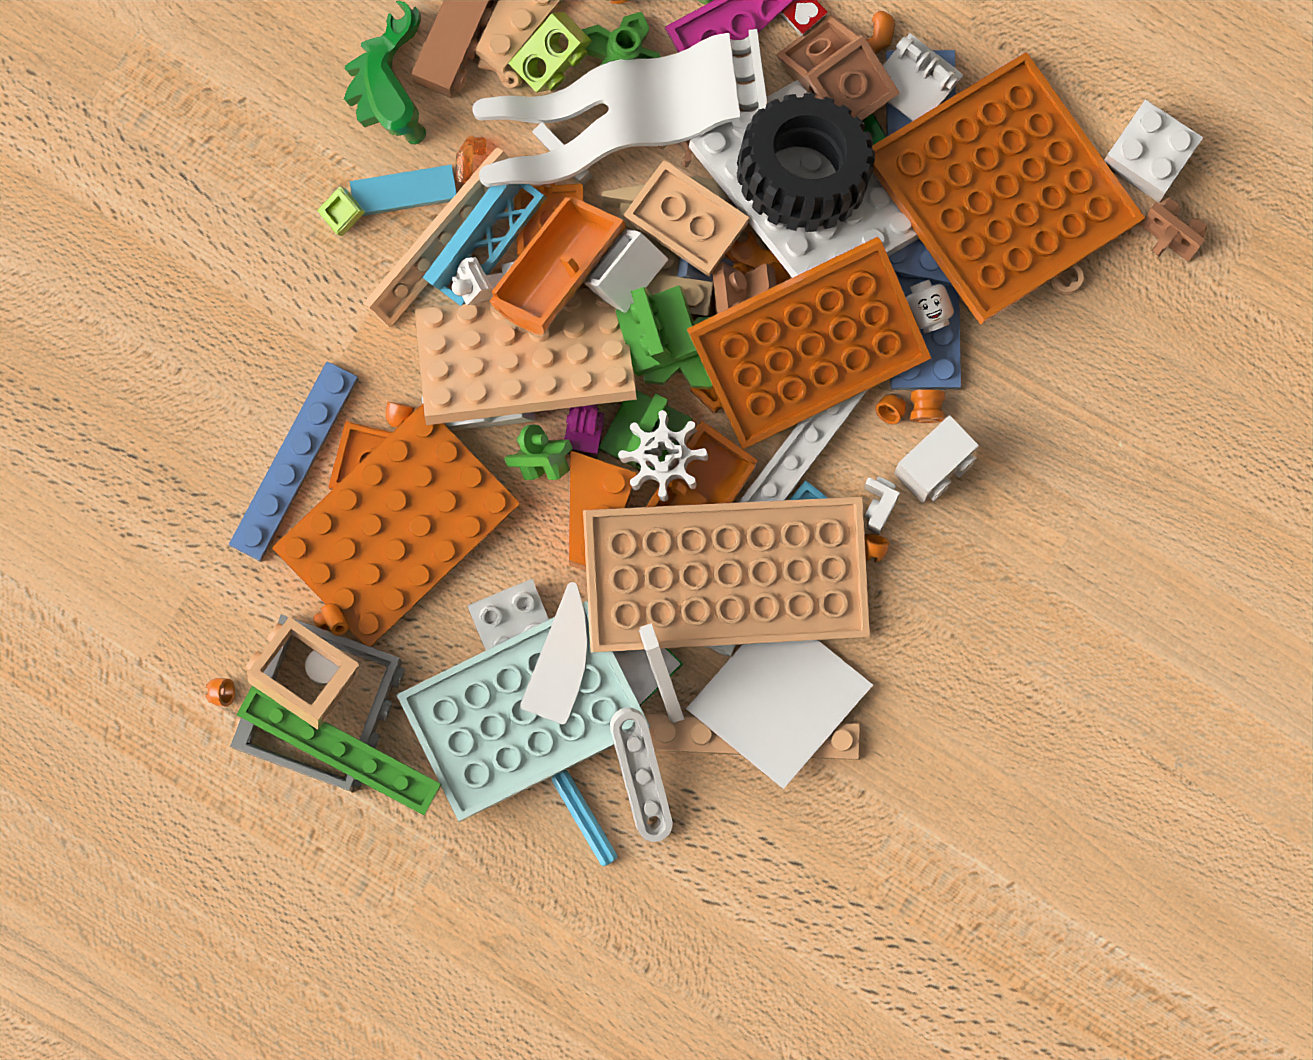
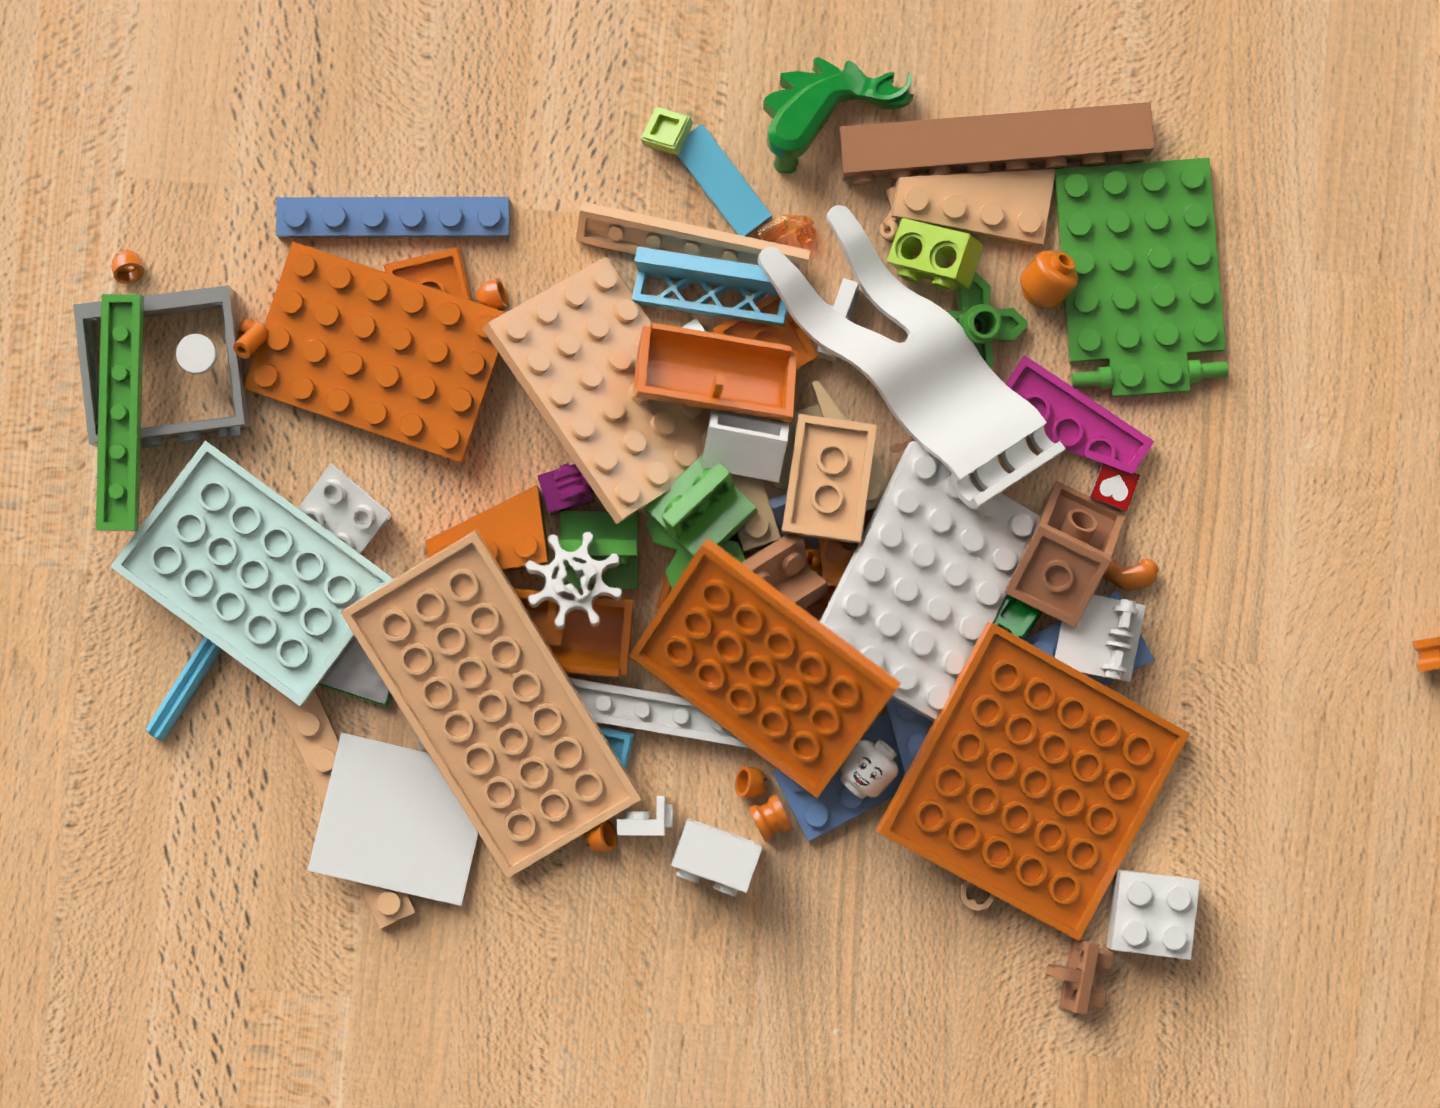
camera: 65 degrees right, 5 degrees up
(330, 695) = (168, 376): light nougat window -> none
(473, 283) = (656, 300): white piece -> none
(539, 454) = (518, 457): bright green hips -> none
(561, 662) = (318, 586): white sticker -> none
(641, 774) = (248, 722): white plate -> none
(661, 673) = (356, 690): white tile -> none
(812, 125) = (990, 558): black tyre -> none

